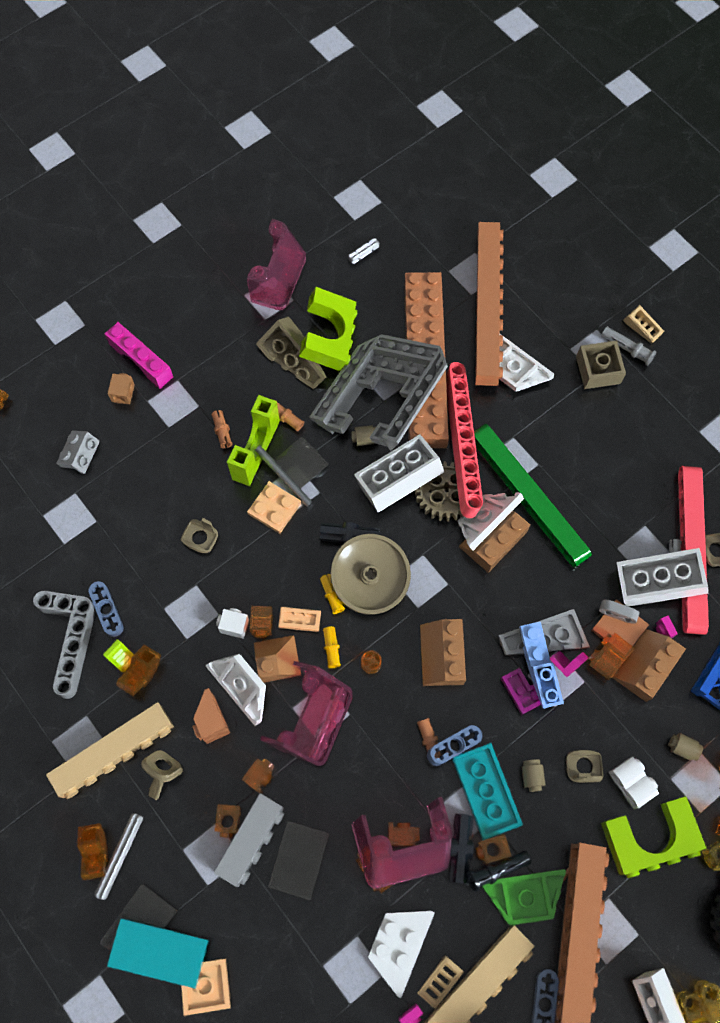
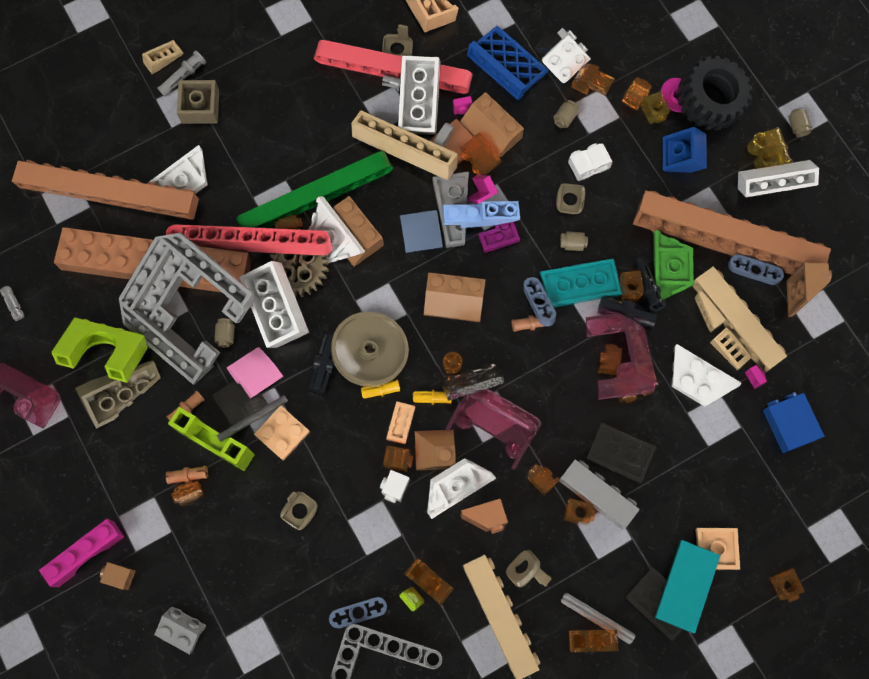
camera: 80 degrees left, 5 degrees up
(204, 432) = (187, 492): none -> clear orange brick
(329, 469) = (254, 372): none -> bright pink slope
(351, 682) = (471, 381): none -> clear smoke plate
(476, 951) = (709, 311): none -> tan slope
(489, 475) = (289, 222): none -> clear orange brick
(510, 607) = (421, 231): none -> sand blue slope
(601, 573) = (404, 145): none -> tan brick
(675, 897) = (685, 151): none -> blue slope
(684, 840) = (642, 134): lime arch -> none

